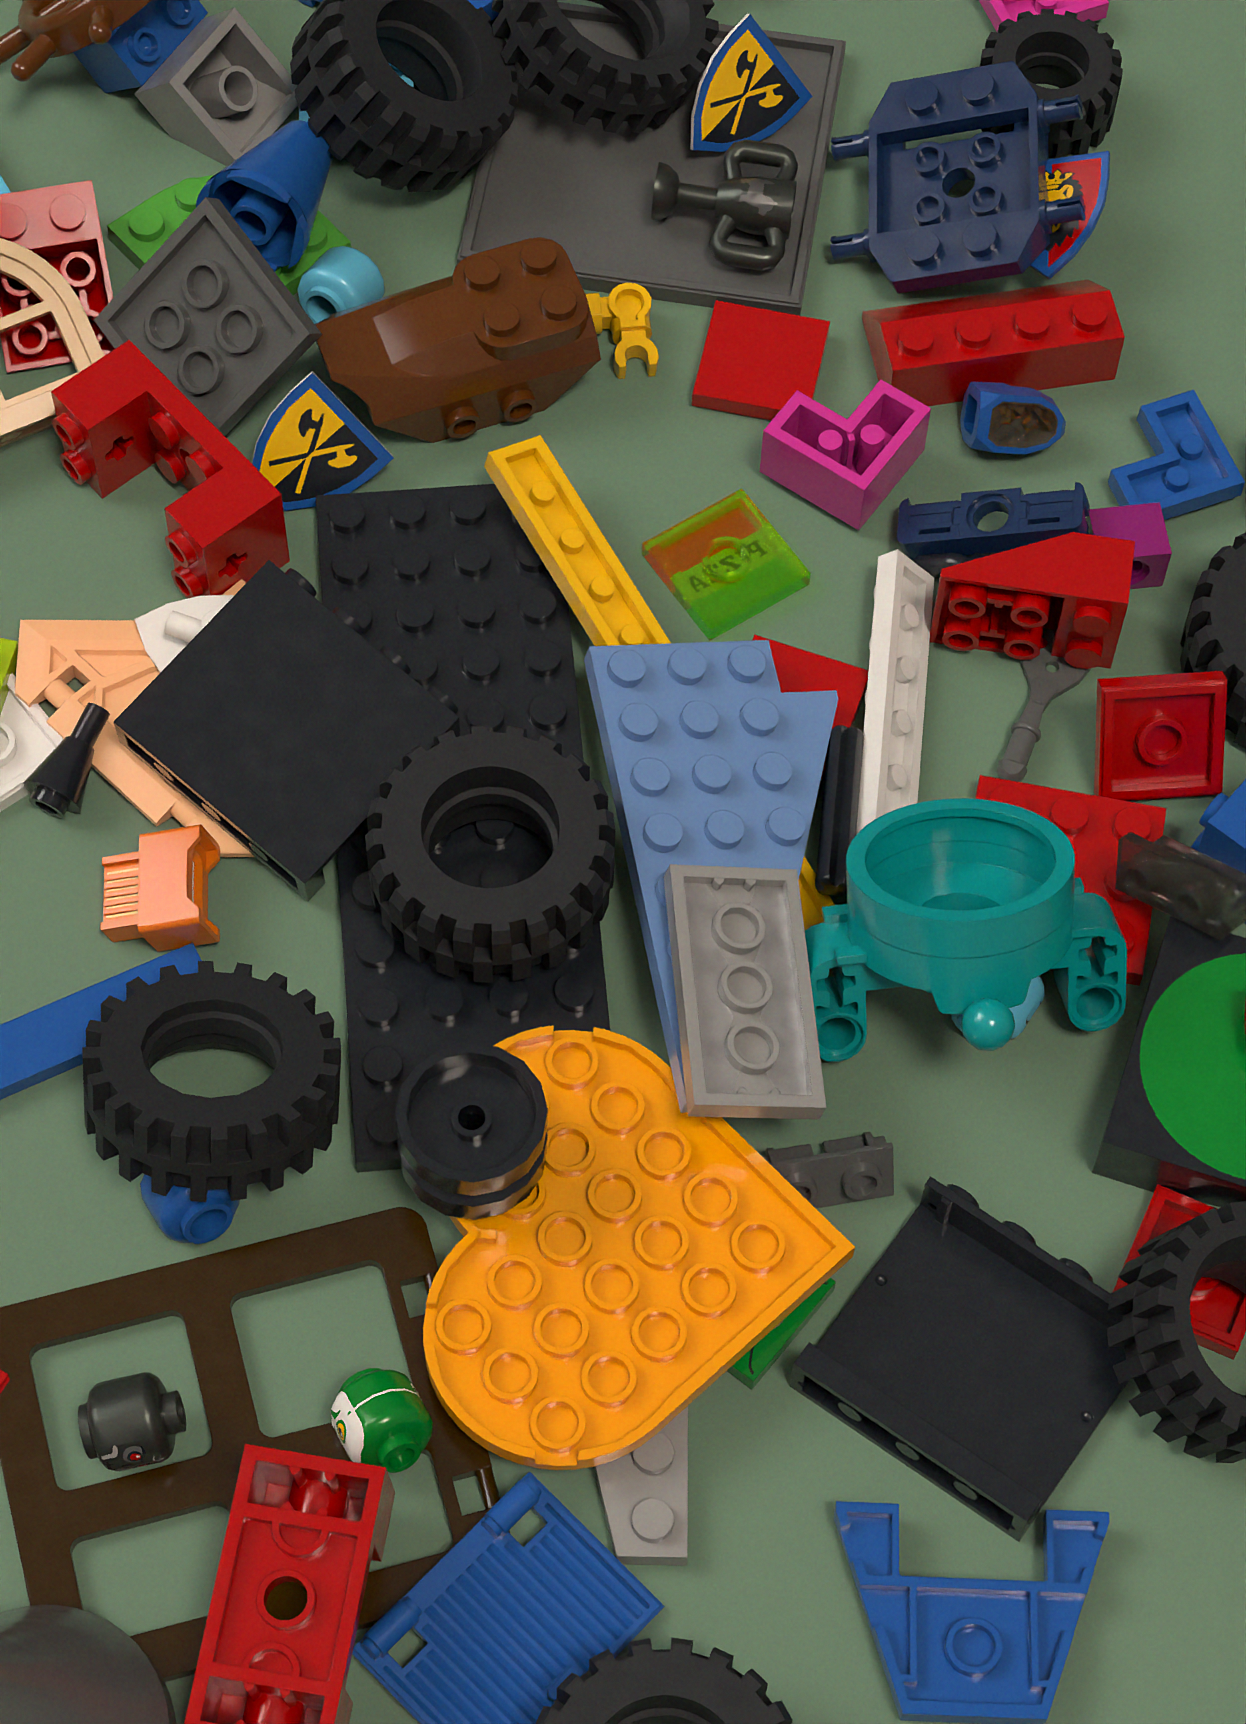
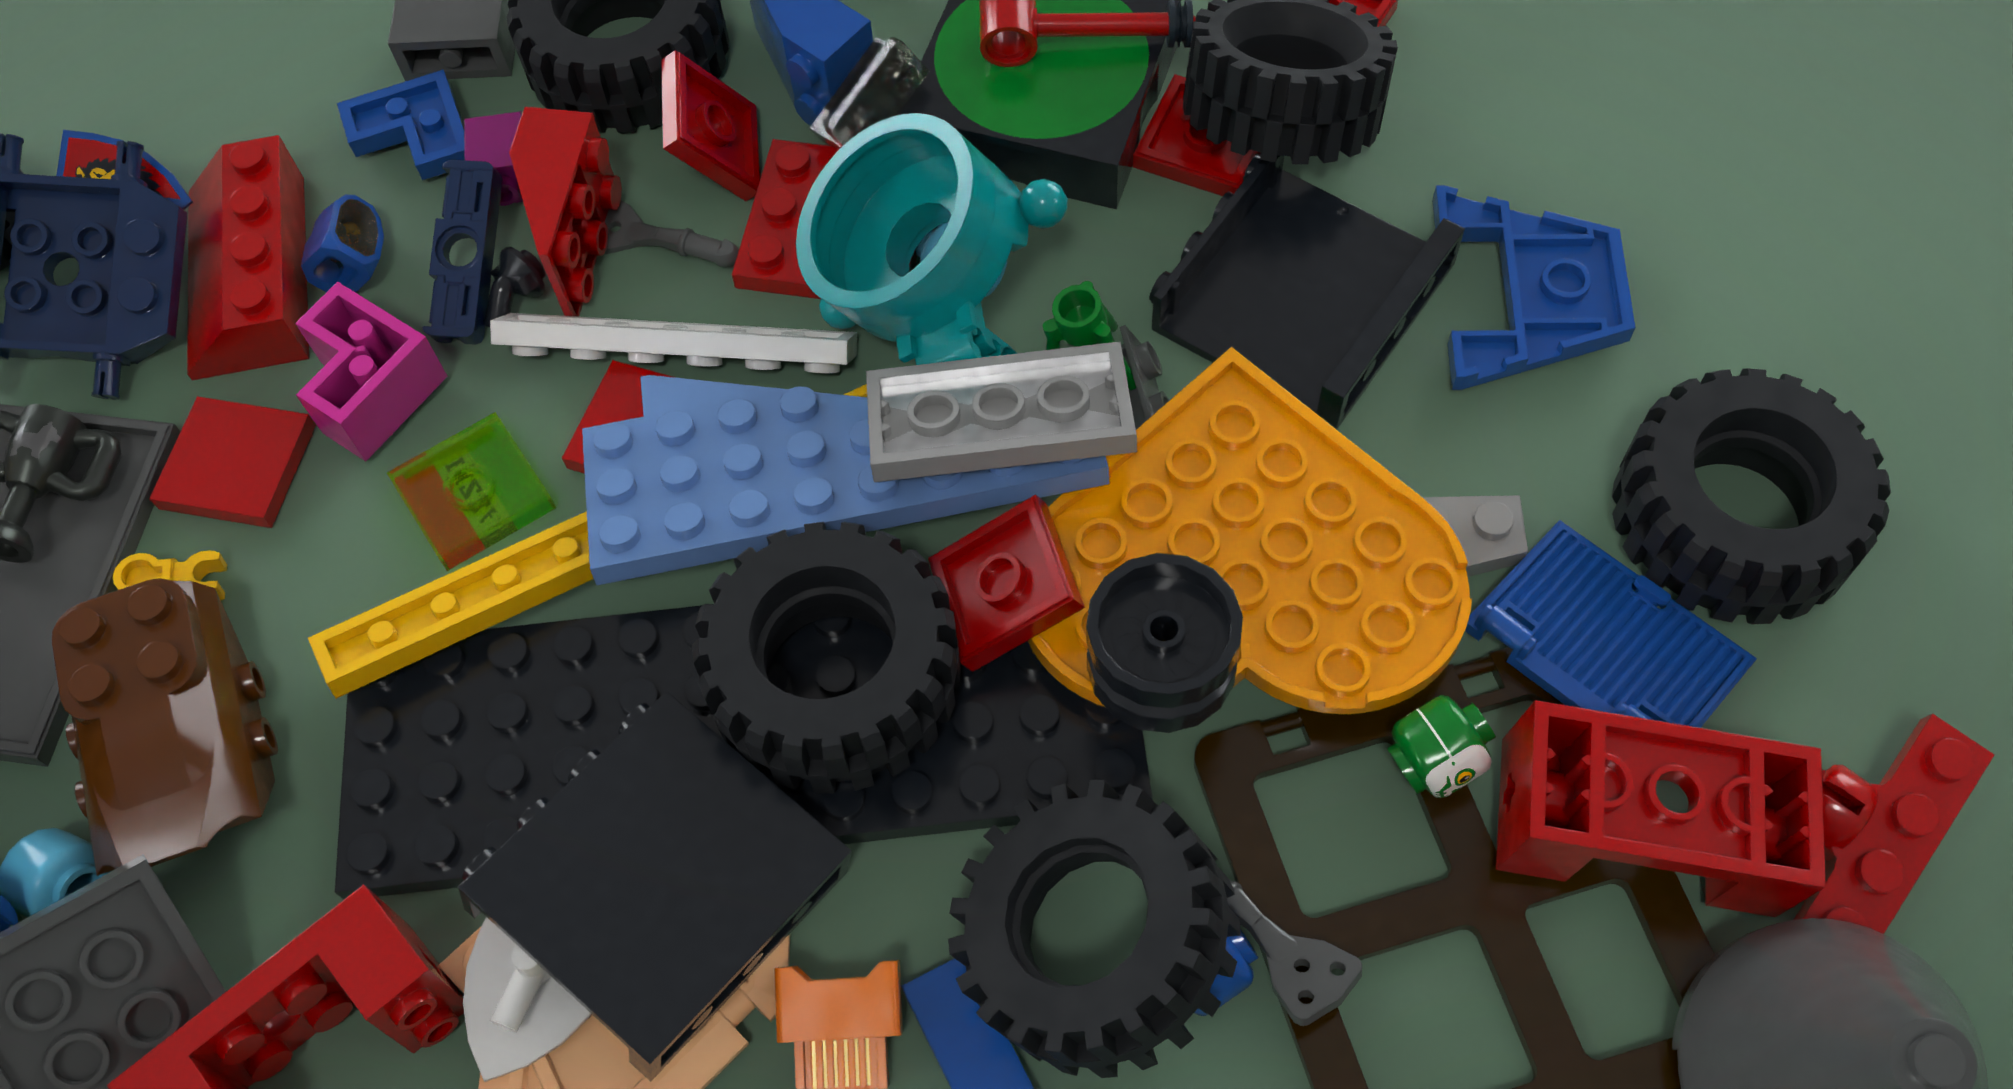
camera: 85 degrees left, 0 degrees up
(131, 1421) = (1472, 993): pearl dark grey head -> none
(195, 1264) = (1287, 952): none -> dark grey piece
(316, 446) = (272, 881): shield -> none
(570, 1011) = (1006, 582): none -> red tile
(839, 808) = (820, 374): black axle -> none
(868, 1085) = (1081, 321): none -> green plant

